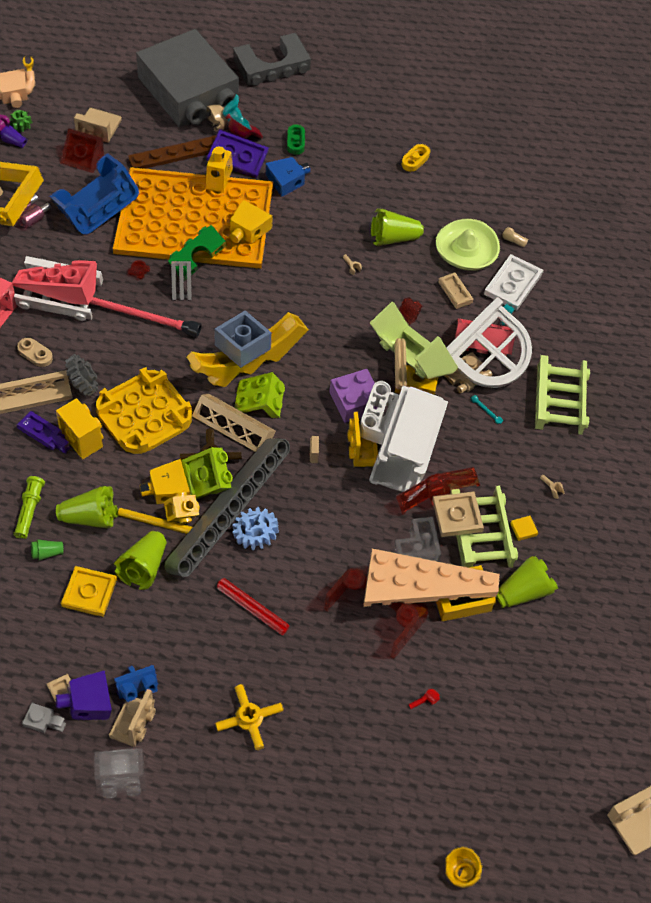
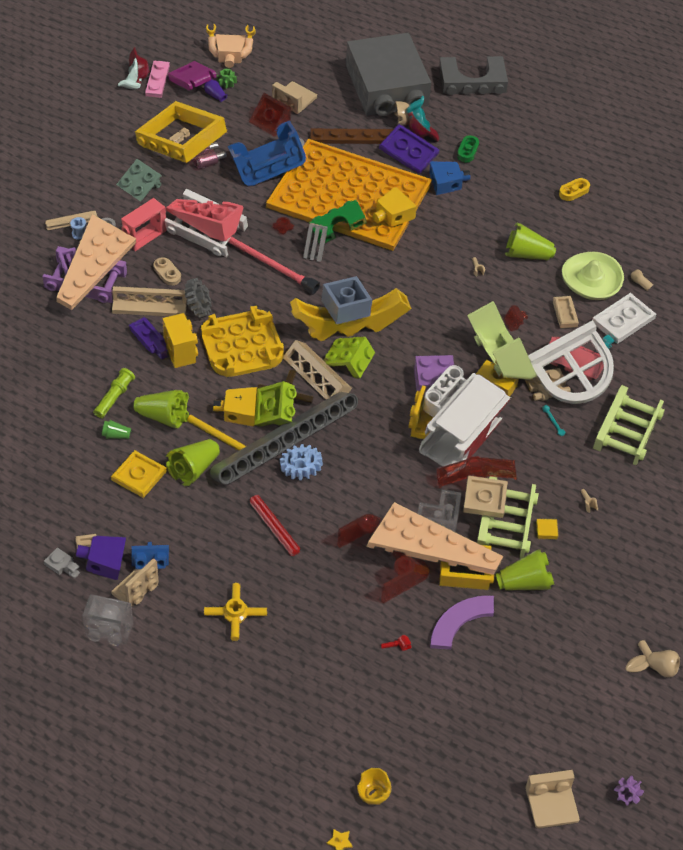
camera: 20 degrees right, 5 degrees down
(181, 508) = (242, 428): yellow brick -> none
(222, 162) = (384, 156): yellow torso -> none
(314, 449) = (379, 411): tan tile -> none
(400, 363) = (485, 356): tan axle -> none
(472, 650) = (458, 615): none -> medium lavender tile

